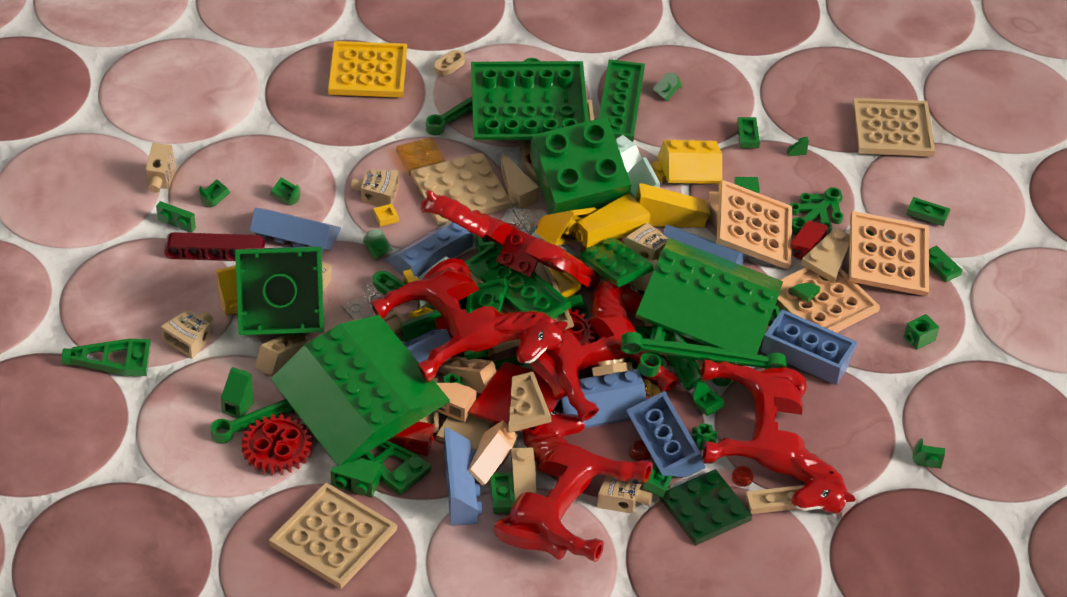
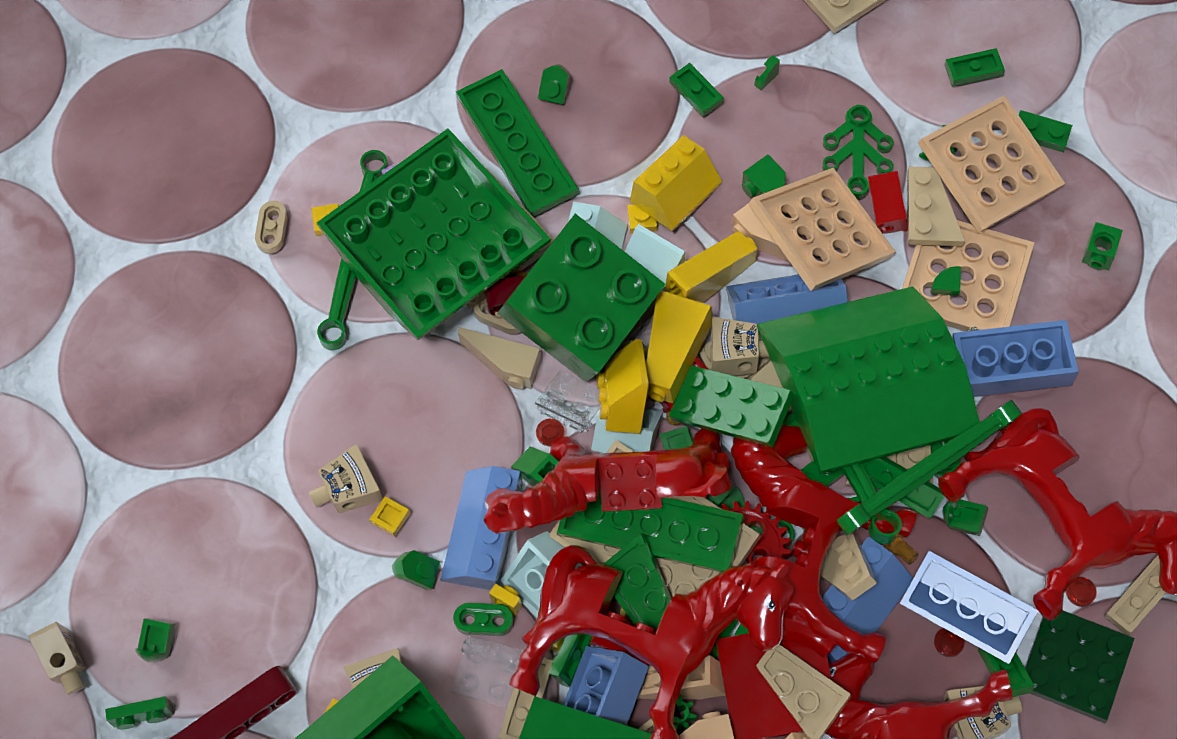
camera: 30 degrees left, 20 degrees up
(286, 192) = (241, 570): green plate -> none
(294, 229) = (300, 620): medium blue slope -> none
(368, 69) = (180, 306): yellow plate -> none
(419, 154) = (353, 394): clear yellow plate -> none
(465, 180) = (440, 410): tan plate -> none
(703, 433) = (996, 575): green gear -> none

